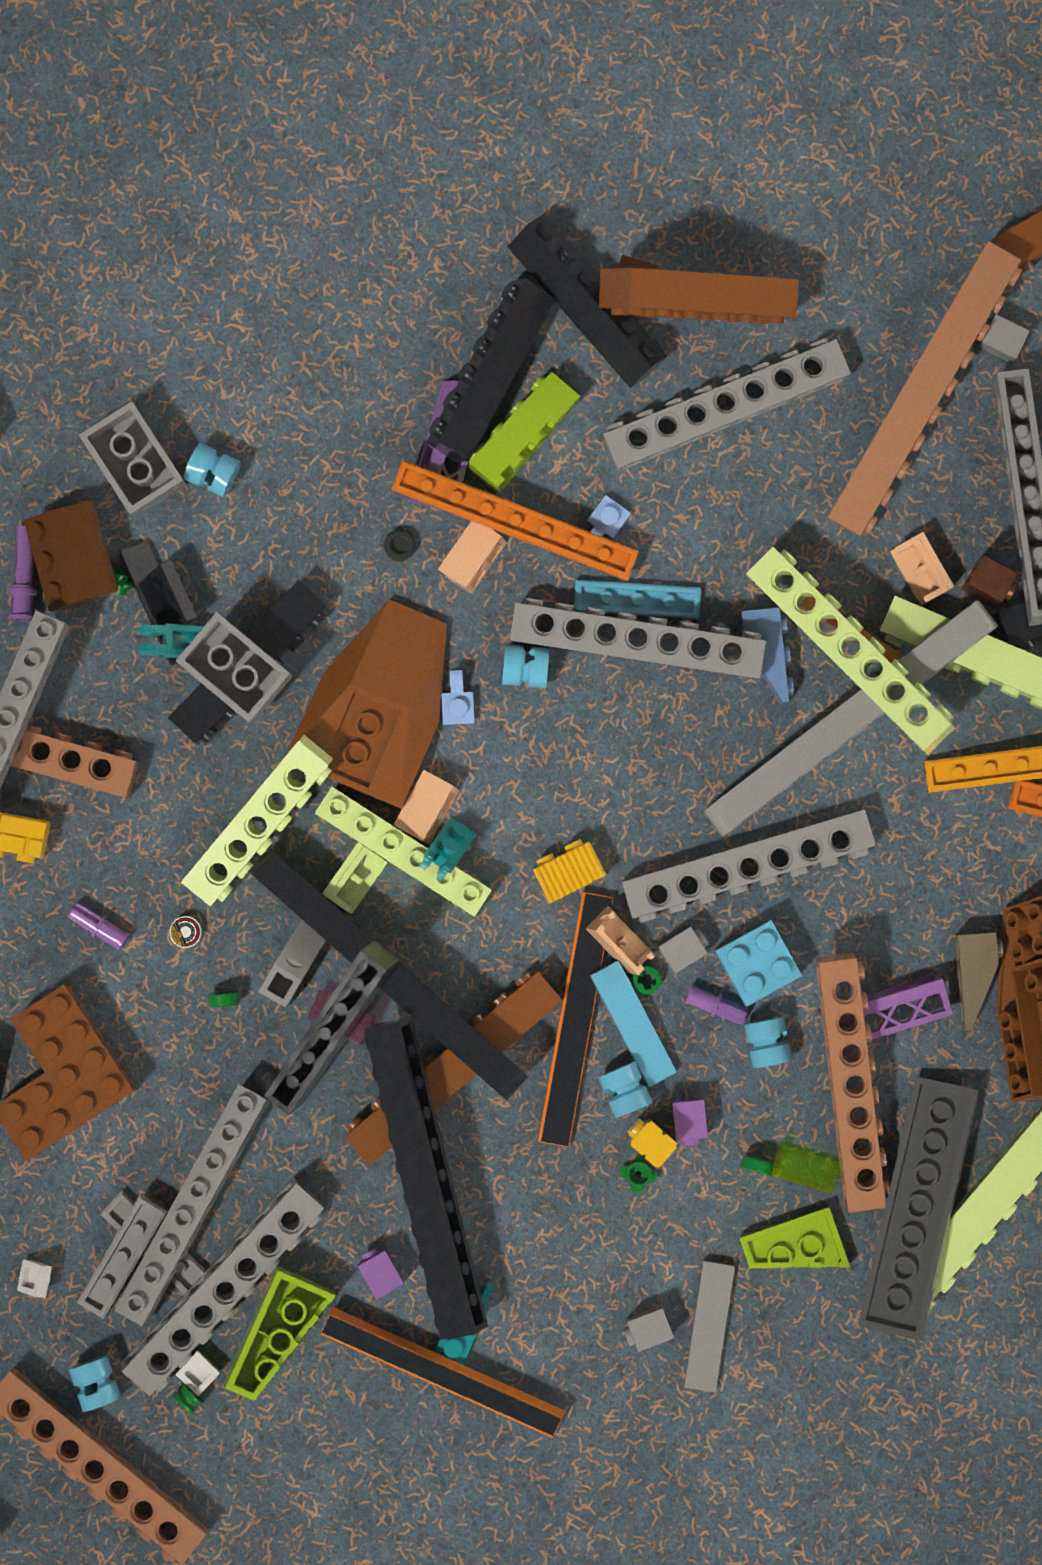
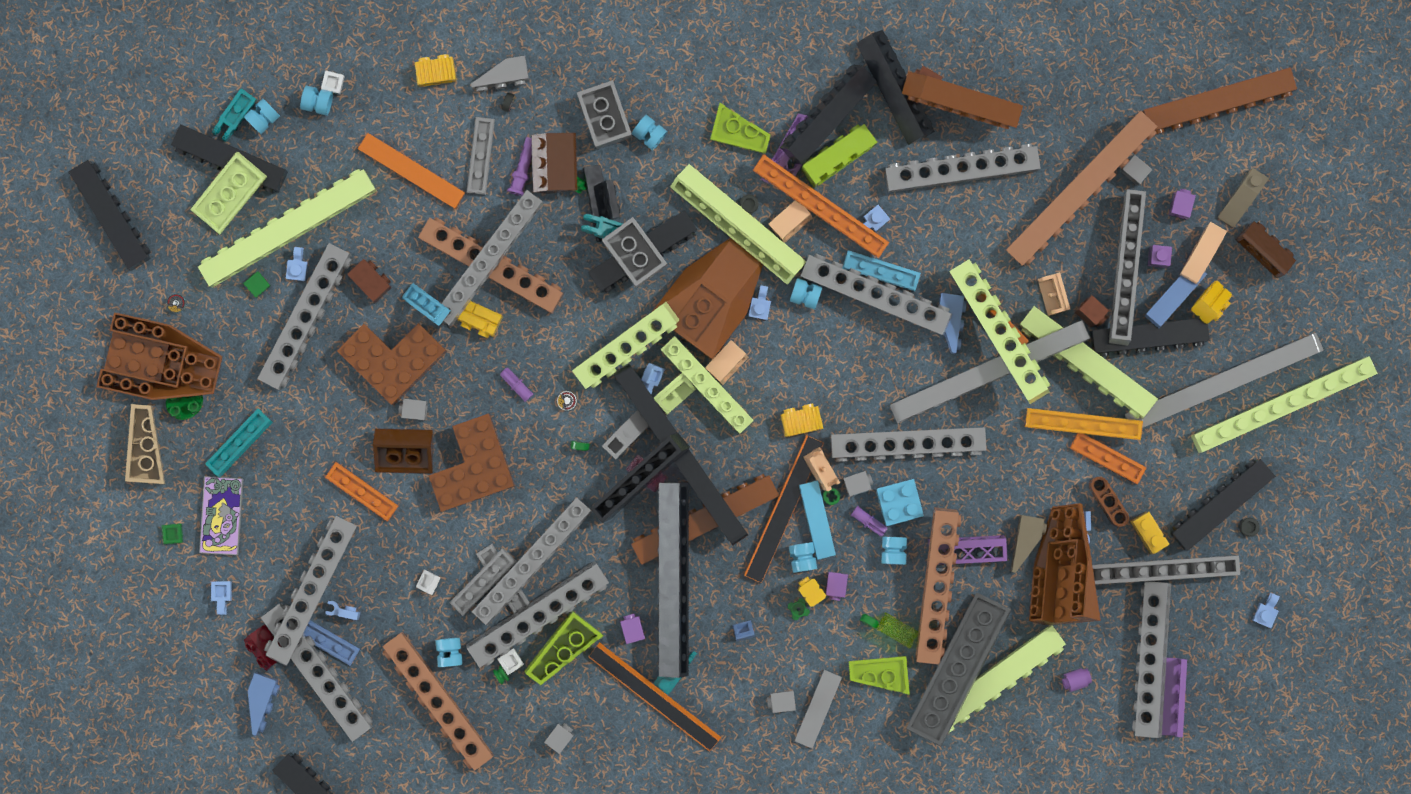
camera: 10 degrees right, 0 degrees up
(306, 1475) = (559, 737): none -> light grey brick
(312, 859) = (652, 376): none -> light blue plate
(352, 434) = (738, 132): none -> lime wing
(389, 581) = (738, 224): none -> yellowish green brick
(448, 848) = (734, 389): teal hinge -> none
(559, 1230) = (743, 630): none -> medium blue slope

